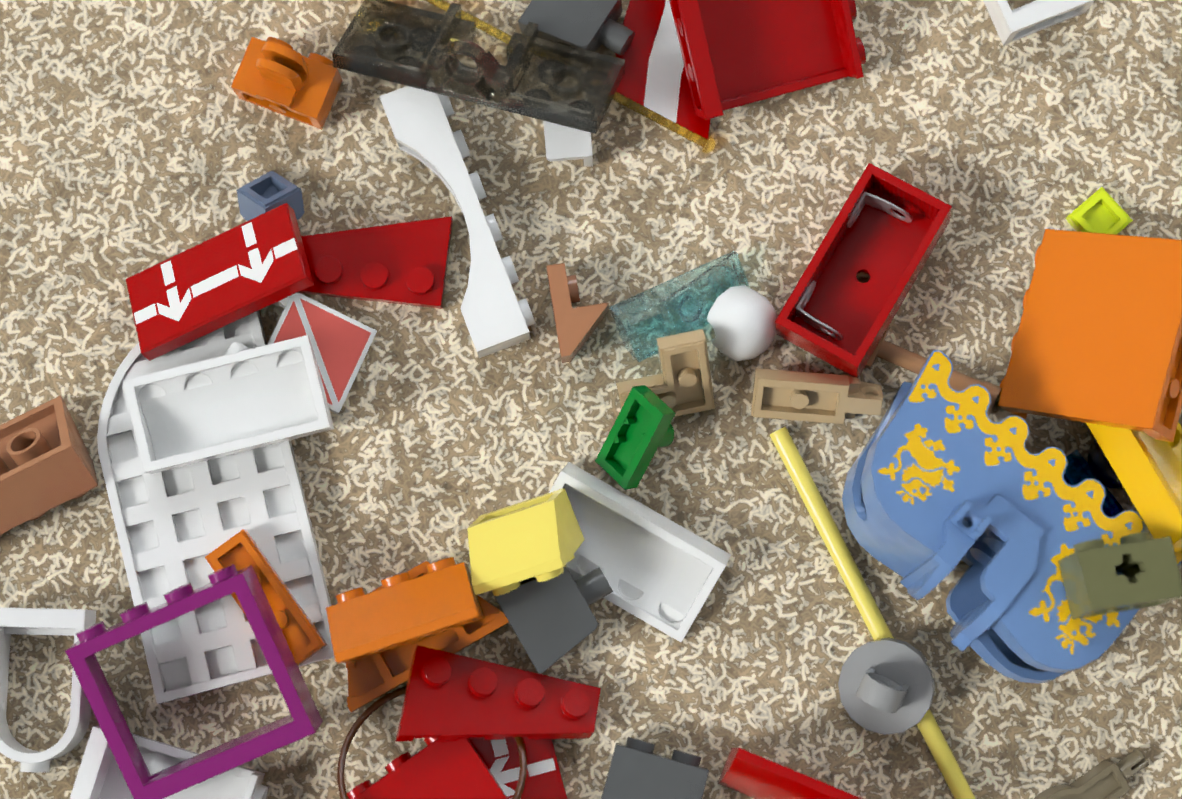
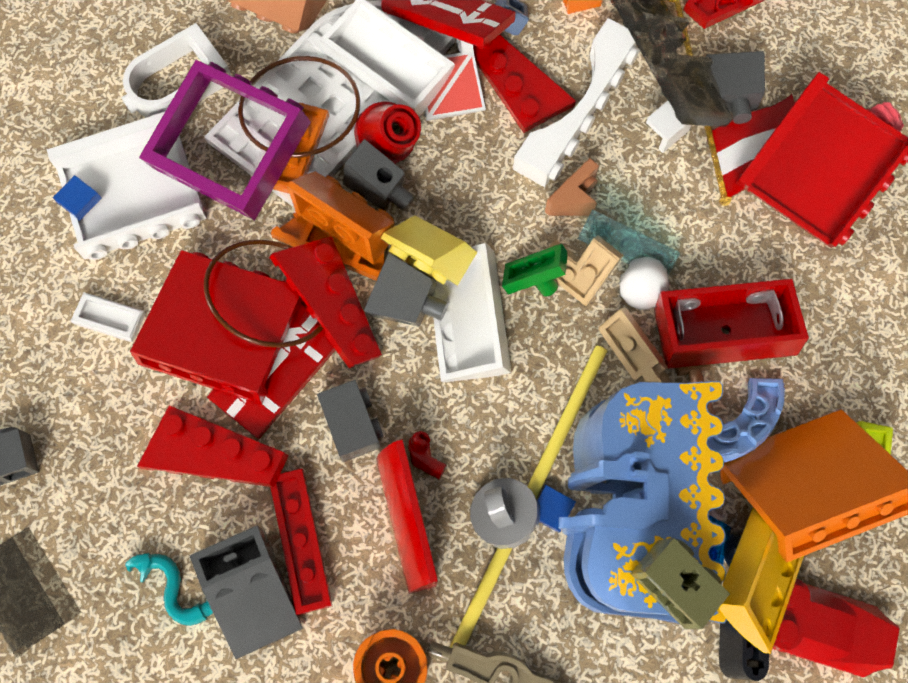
camera: 50 degrees right, 10 degrees down
(152, 494) = (303, 58): none -> reddish brown piece
(315, 488) = (376, 127): none -> red piece
(361, 541) = (376, 178): none -> dark grey torso
(753, 729) = (421, 455): none -> red arm
(919, 625) = (552, 506): none -> blue tile
(990, 335) = (754, 423): none -> light blue tile

